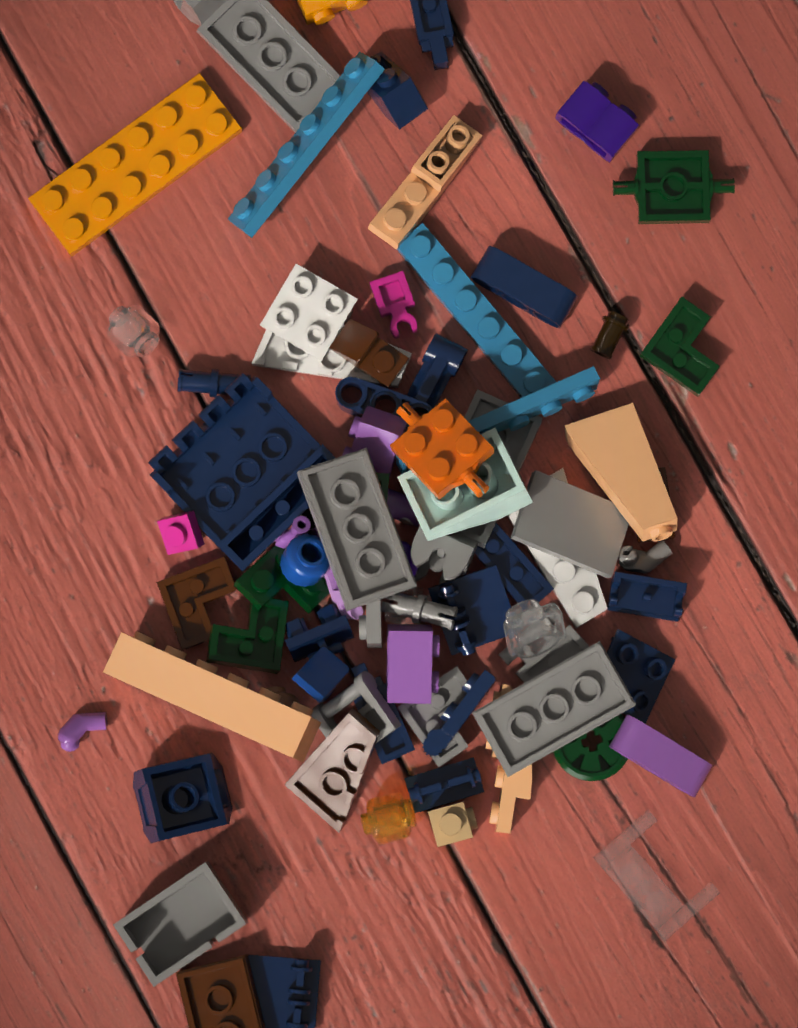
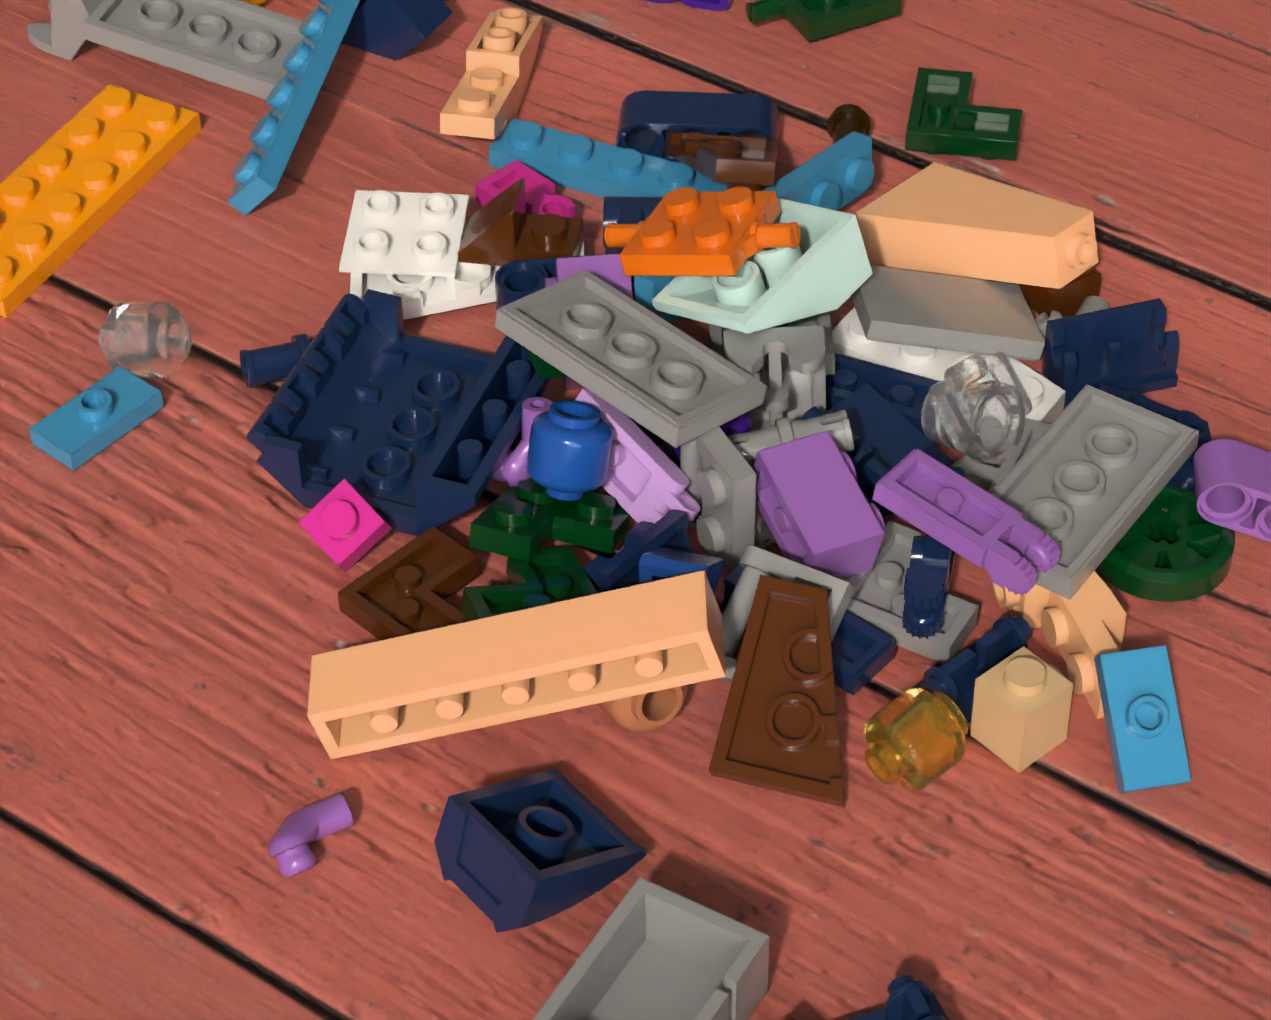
camera: 25 degrees left, 40 degrees down
(88, 374) = (96, 418): none -> dark azure plate
(467, 721) = (967, 521): none -> medium lavender hinge
(502, 862) = (1142, 719): none -> dark azure plate
(515, 348) = (726, 158): none -> reddish brown wing

